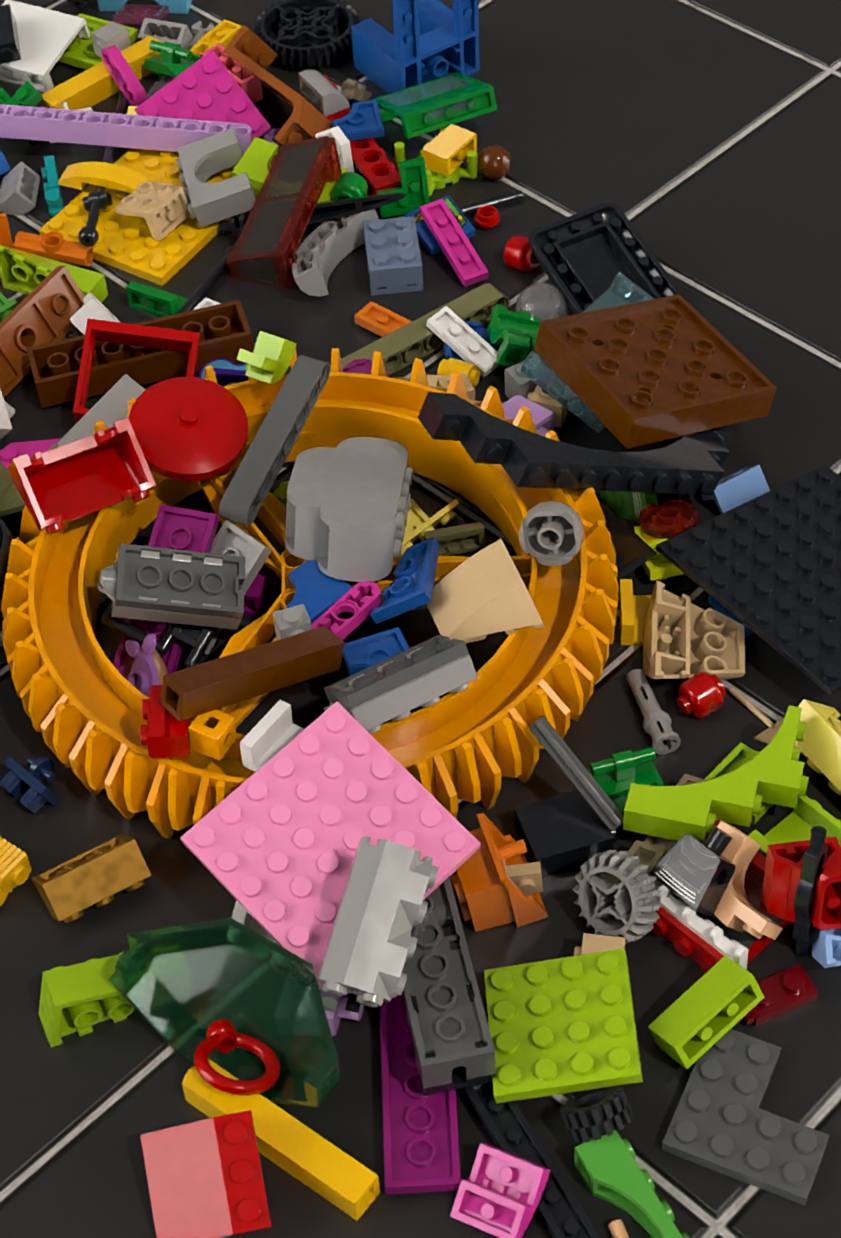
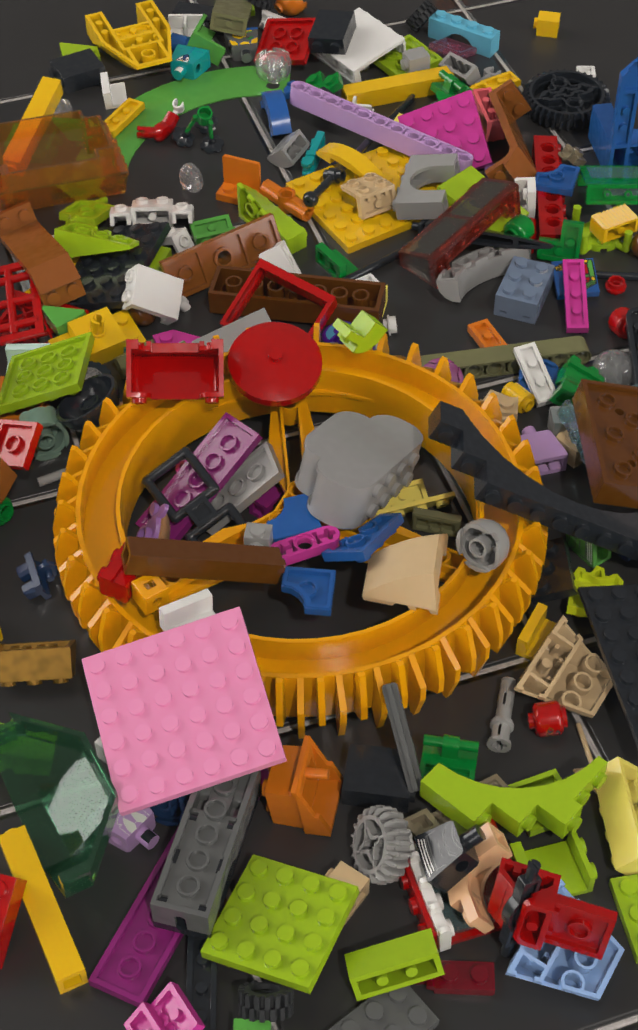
camera: 25 degrees right, 0 degrees up
(123, 75) = (408, 88): dark pink beam -> none
(175, 586) = (198, 475): dark grey piece -> none
(224, 1038) = (46, 818): red piece -> none
(274, 440) = (331, 395): dark grey beam -> none
(321, 93) = (543, 148): light grey brick -> none
(376, 922) = (169, 782): light grey brick -> none
(404, 682) = (302, 613): piece -> none
(526, 876) = (321, 798): tan bracket -> none
(668, 519) = (606, 571): clear red tile -> none

